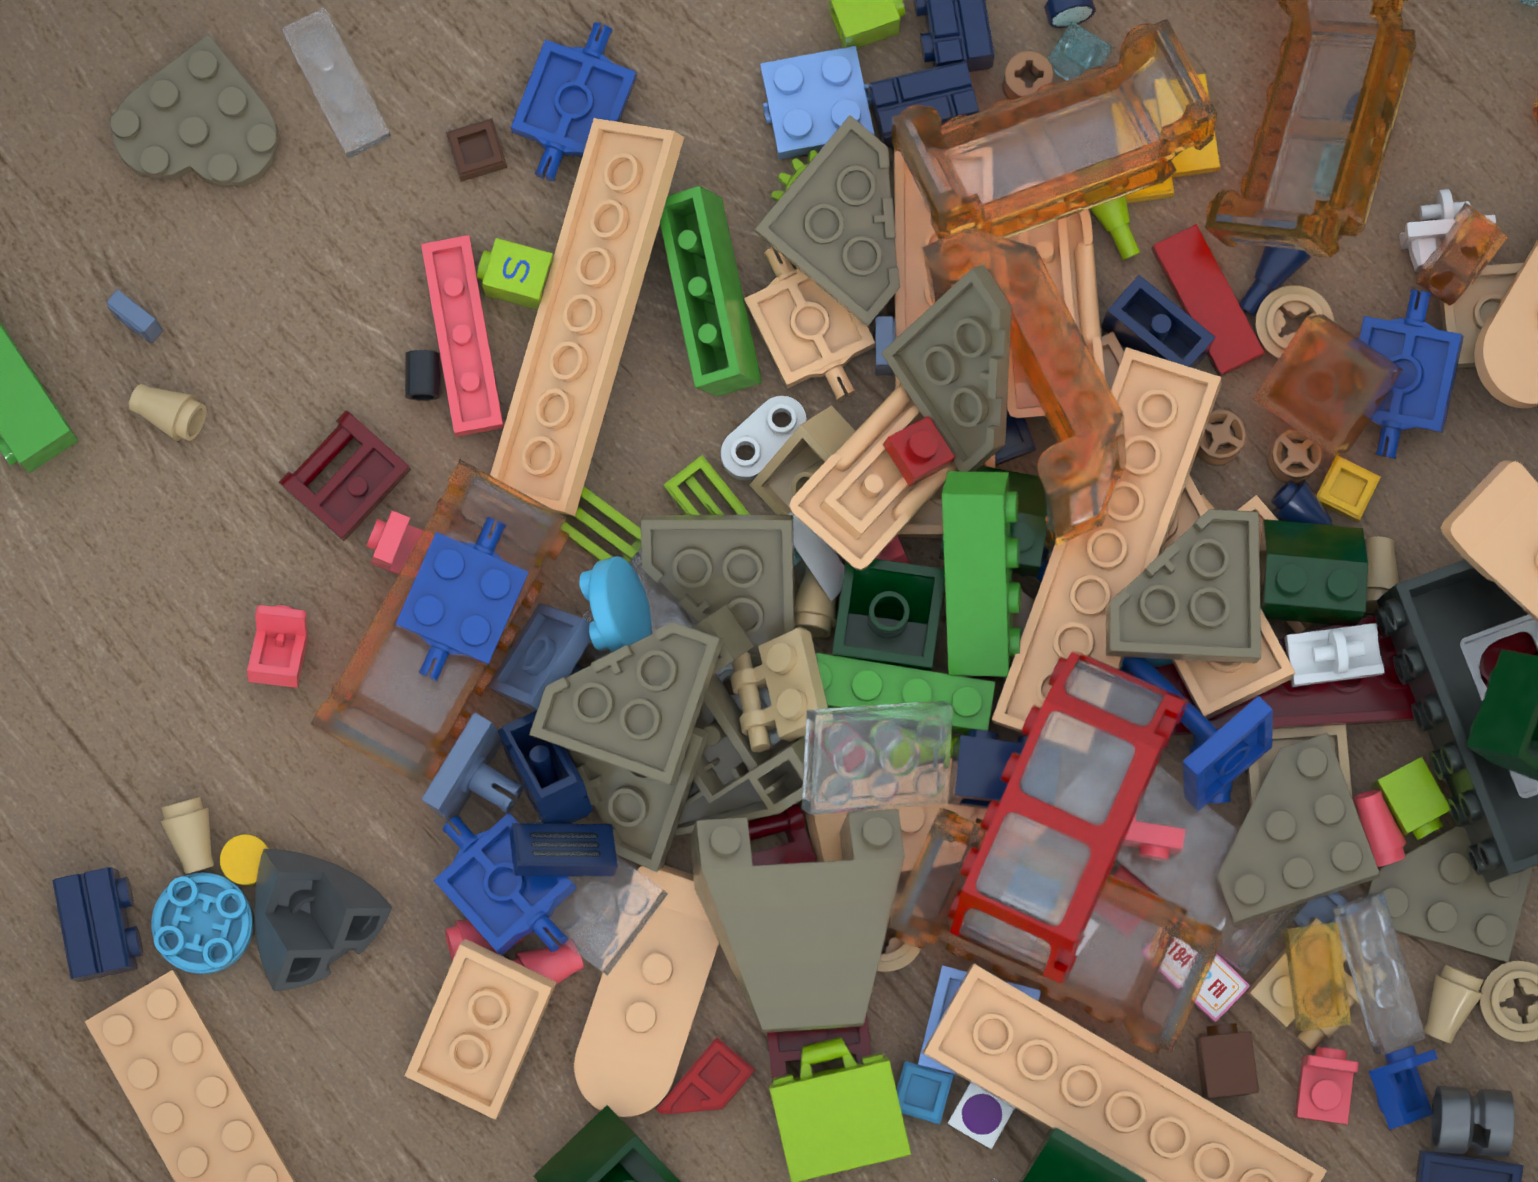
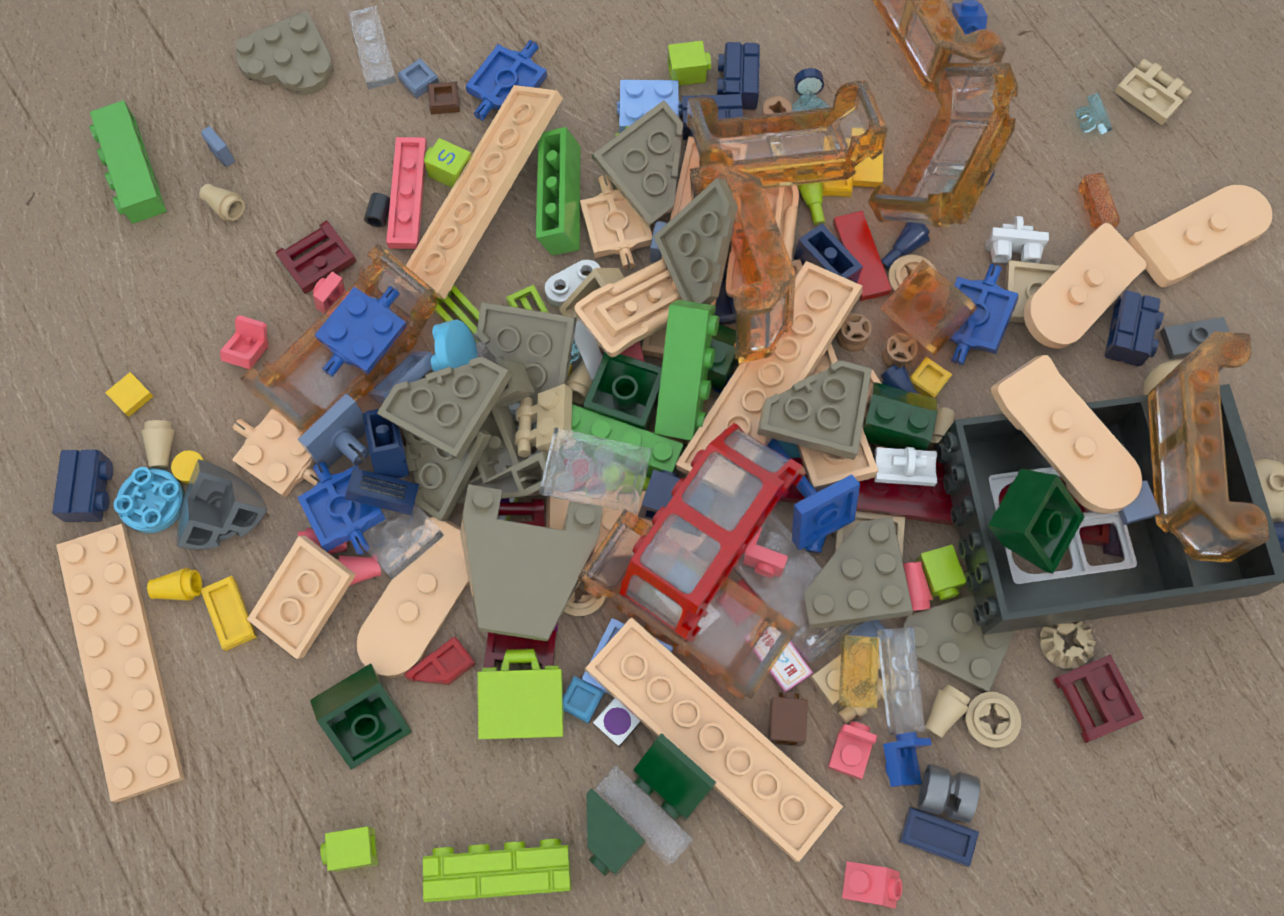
camera: 10 degrees right, 10 degrees down
(118, 762) = (129, 394): none -> yellow tile
(284, 1047) = (178, 585): none -> yellow cone
(371, 1070) = (228, 613): none -> yellow tile
(373, 813) = (274, 454): none -> light nougat plate
(424, 122) = (417, 77): none -> sand blue tile
(919, 451) = (662, 292): red plate -> none
(1461, 255) = (1025, 248): clear orange leg -> none

